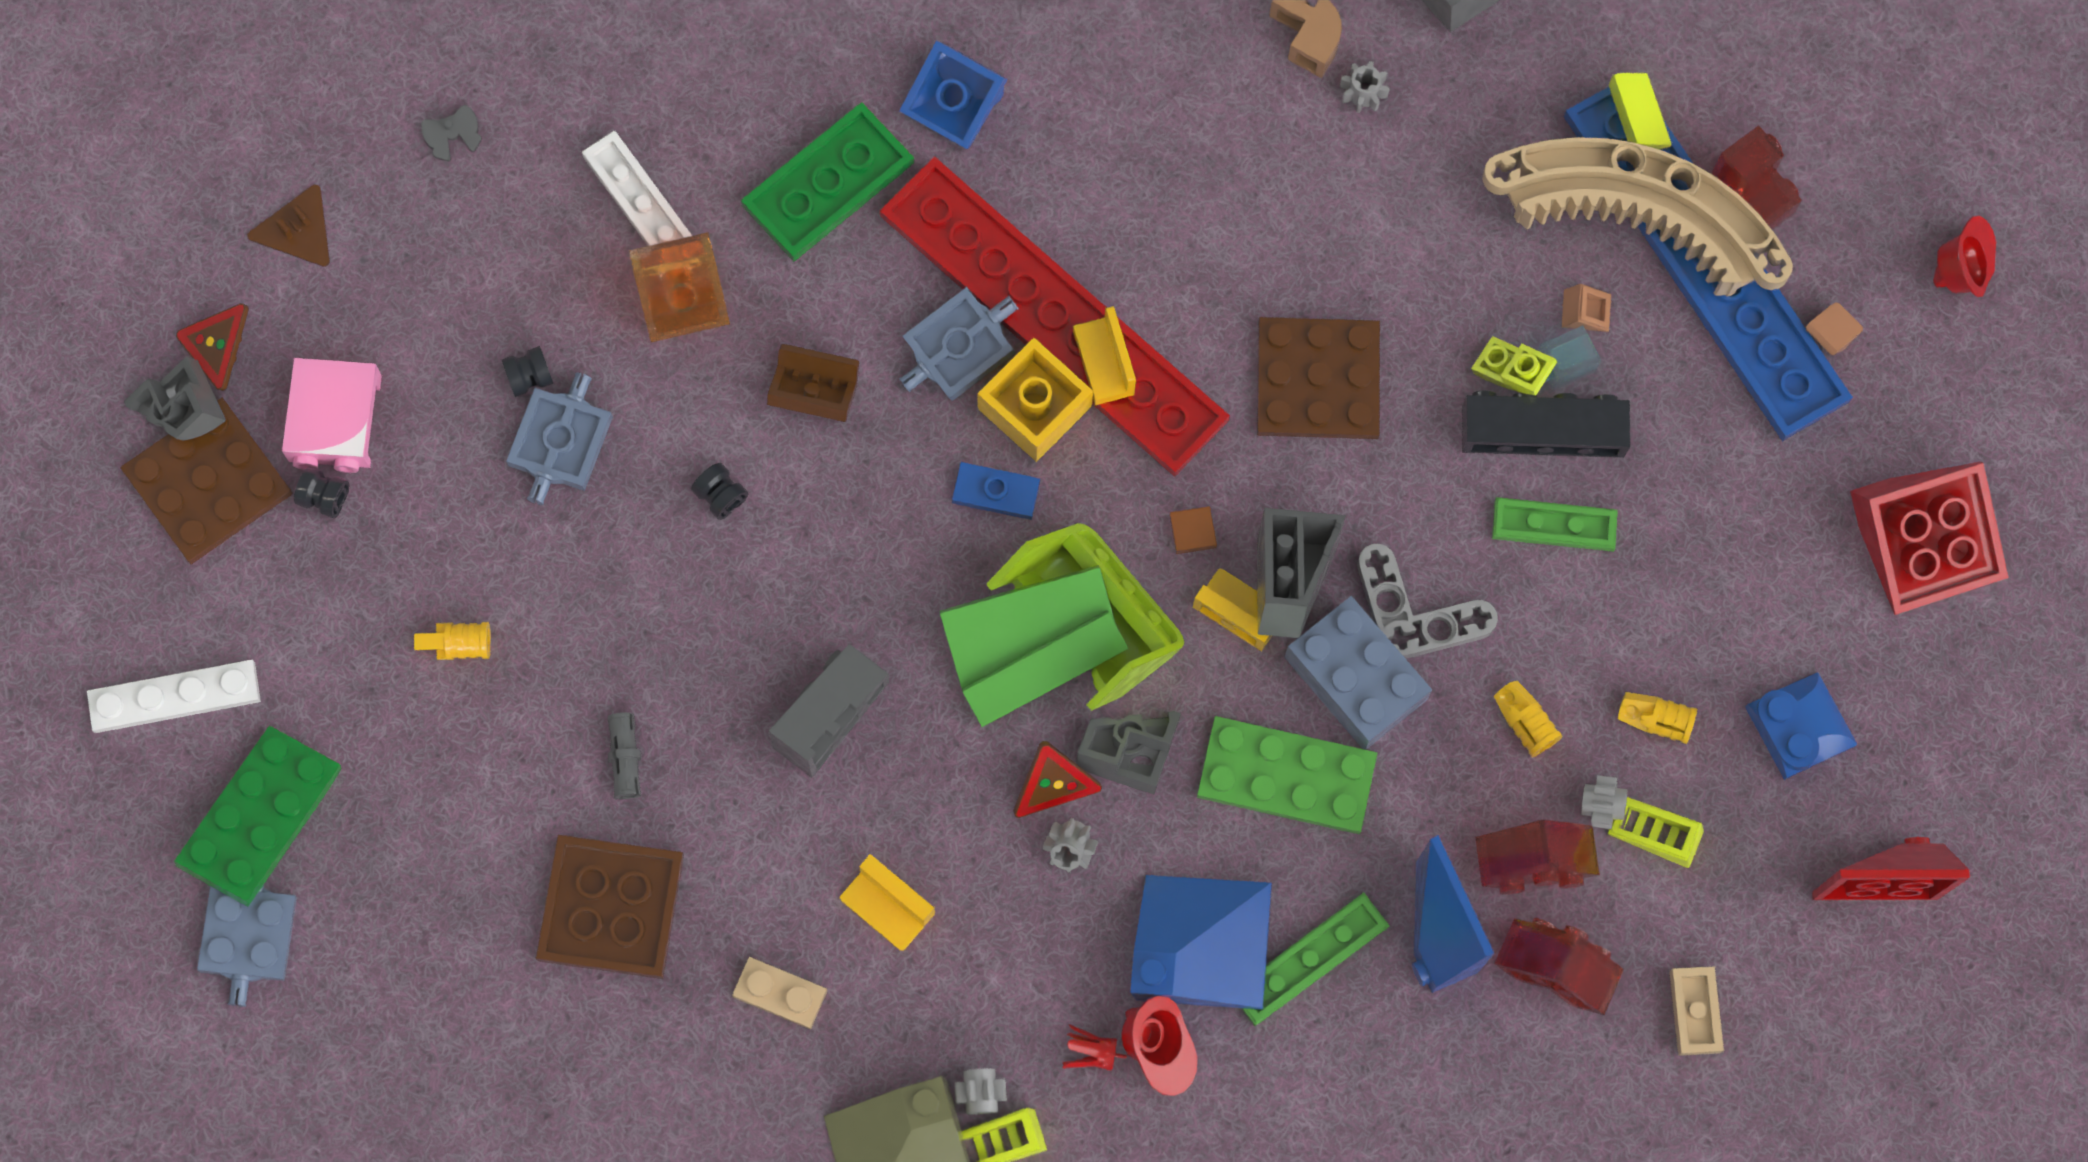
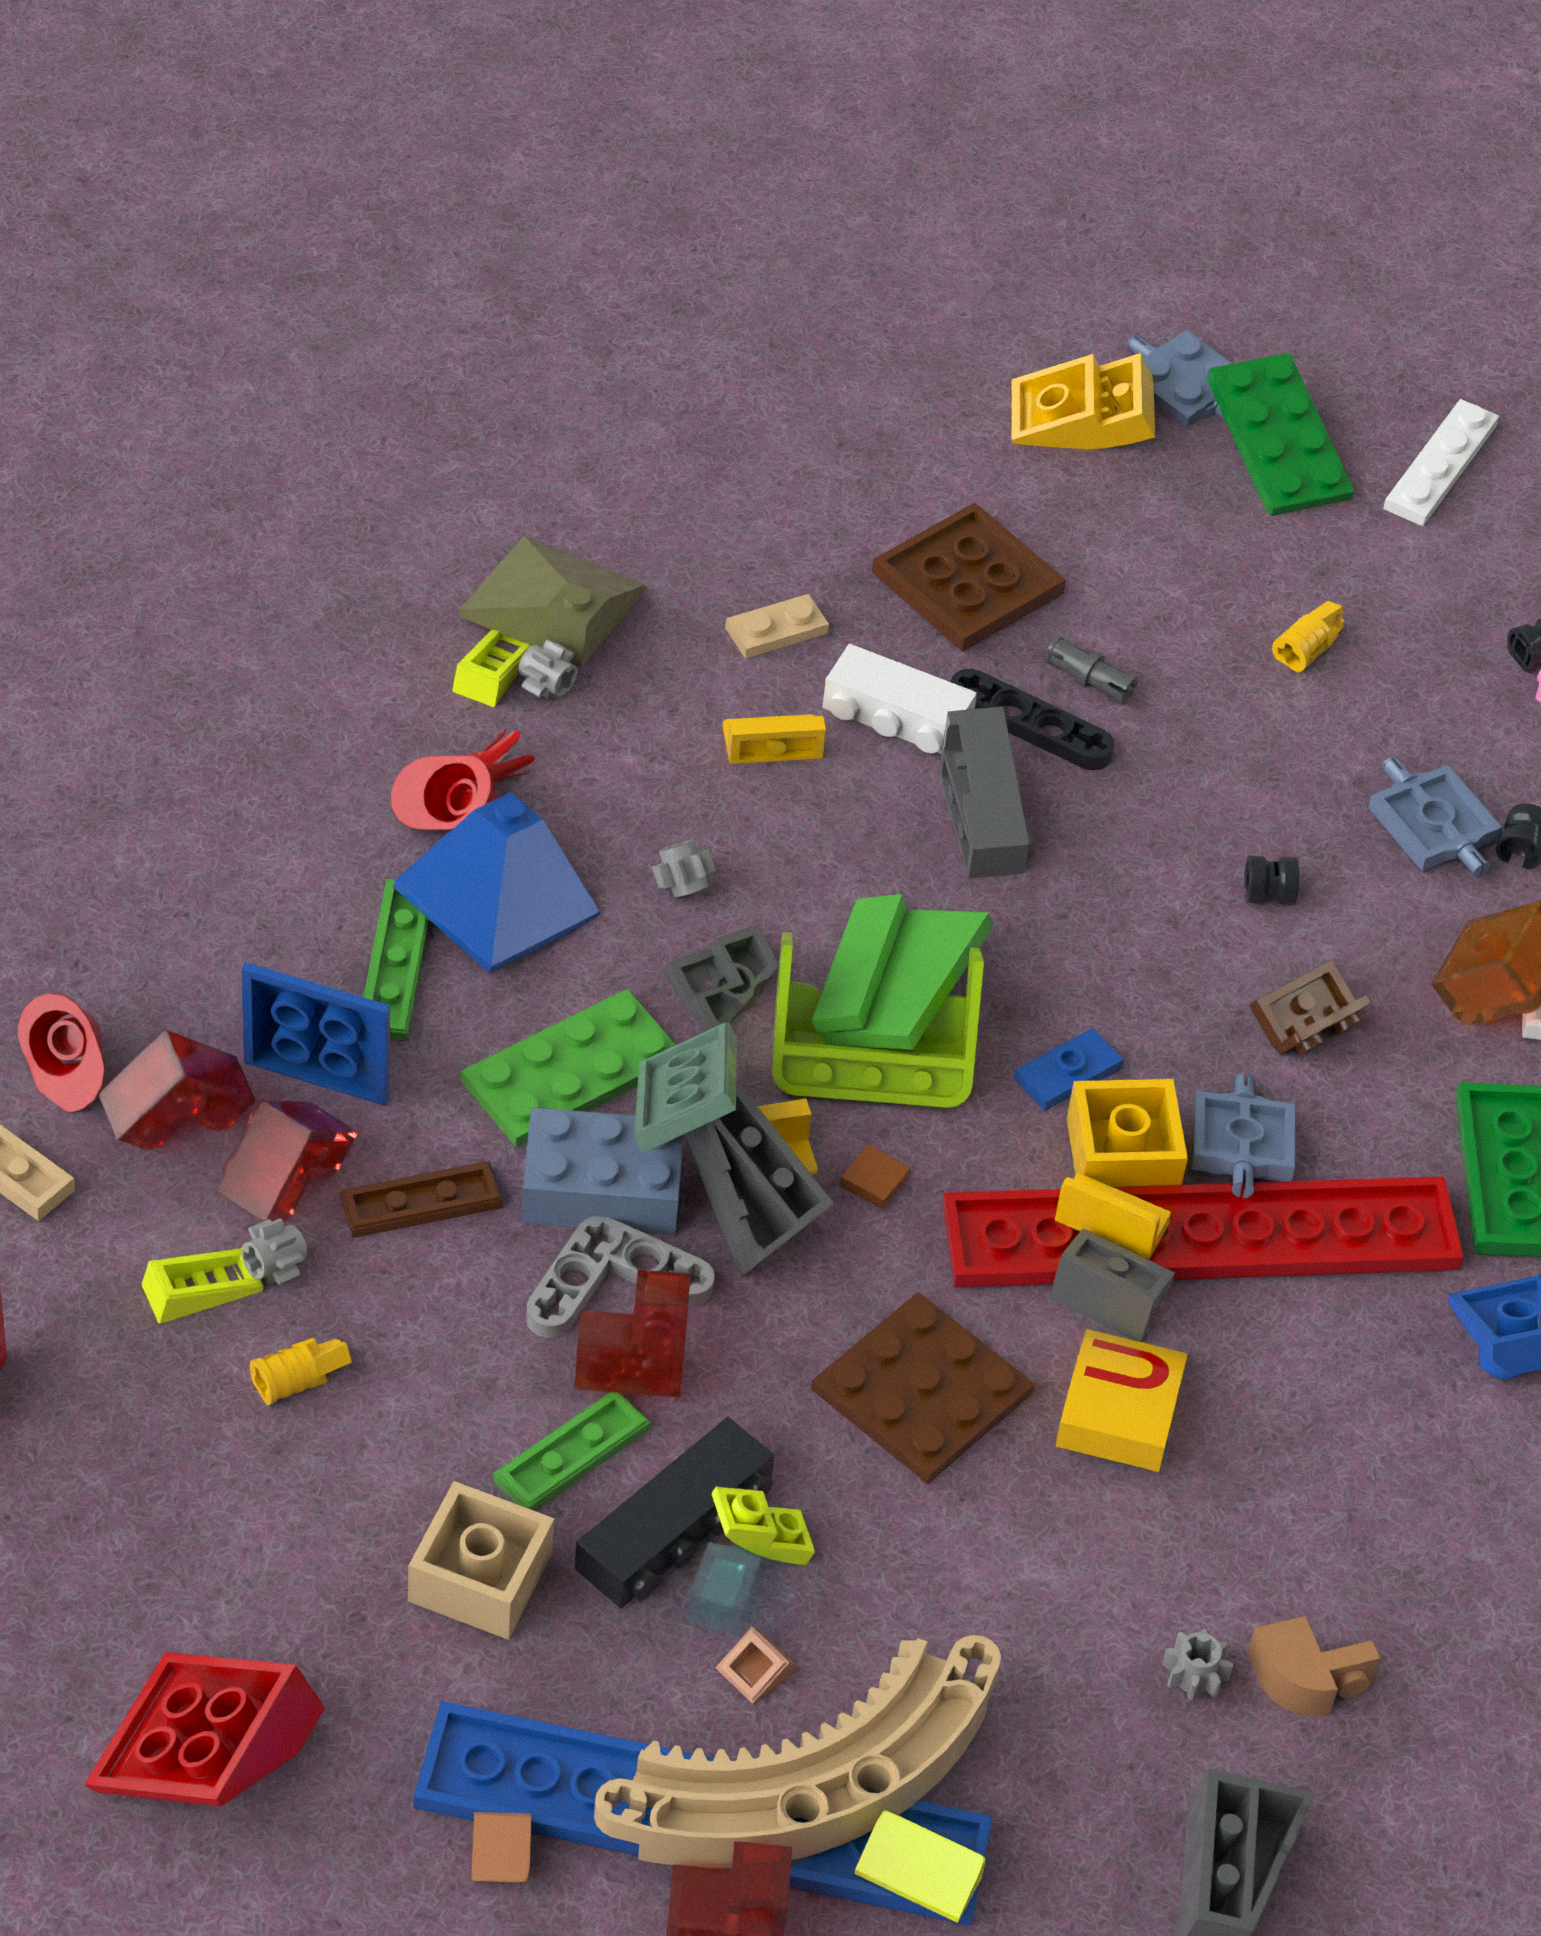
camera: 130 degrees right, 25 degrees down
(354, 974) = (1084, 404): none -> yellow slope
(709, 756) = (1037, 714): none -> black beam
(784, 844) = (893, 697): none -> white brick
(1052, 782) = (753, 897): piece -> none
(1148, 324) = (1110, 1284): none -> dark grey panel
(1221, 261) = (1121, 1400): none -> yellow slope
(1282, 645) = (686, 1087): none -> sand green tile
(1464, 533) = (639, 1349): none -> clear red brick
(1472, 768) = (421, 1199): none -> reddish brown tile
(1527, 718) = (414, 1268): yellow hinge -> none
(1592, 1071) = (59, 1028): none -> piece
(1687, 490) = (480, 1560): none -> tan brick
(1800, 725) = (159, 1473): blue slope -> none

